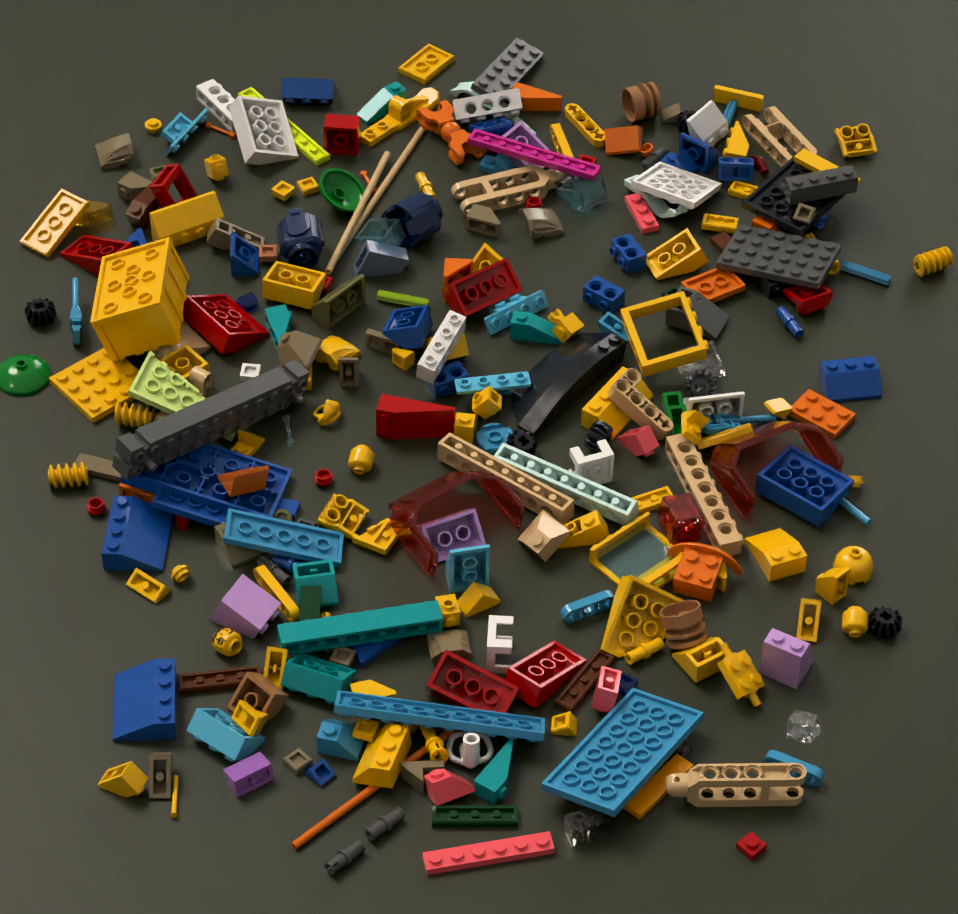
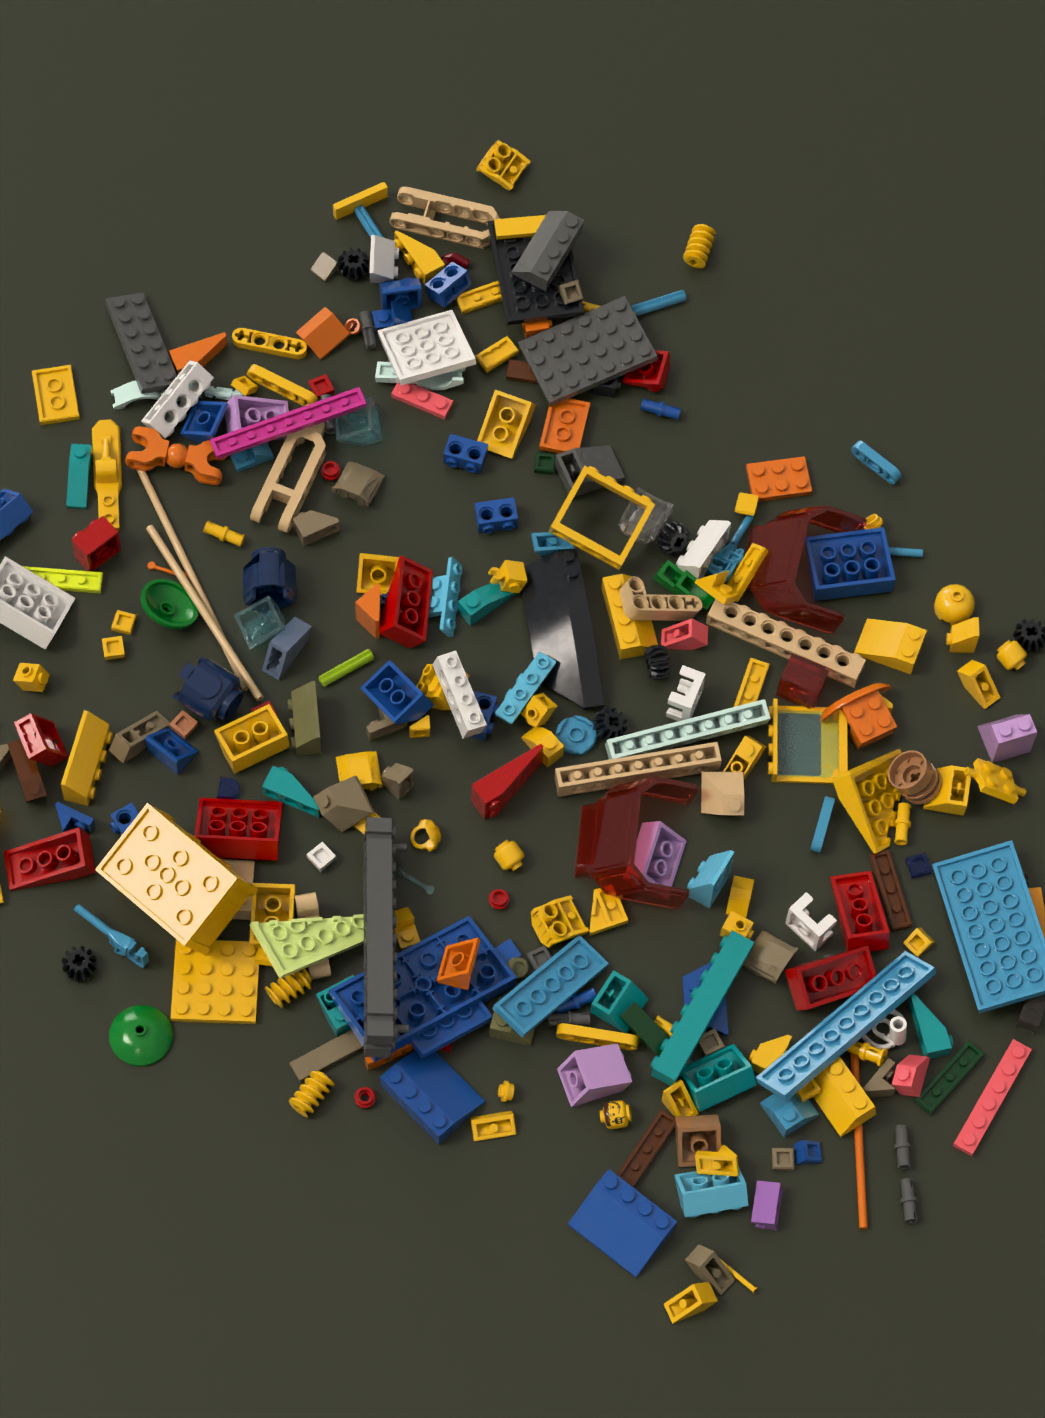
camera: 50 degrees left, 20 degrees up
(540, 131) = (244, 385): none -> yellow tile
(606, 689) = (921, 884): coral slope -> none
(641, 101) = (296, 279): medium nougat wheel -> none
(850, 379) = (767, 426): blue slope -> none
(902, 451) = (876, 462): none -> dark azure beam

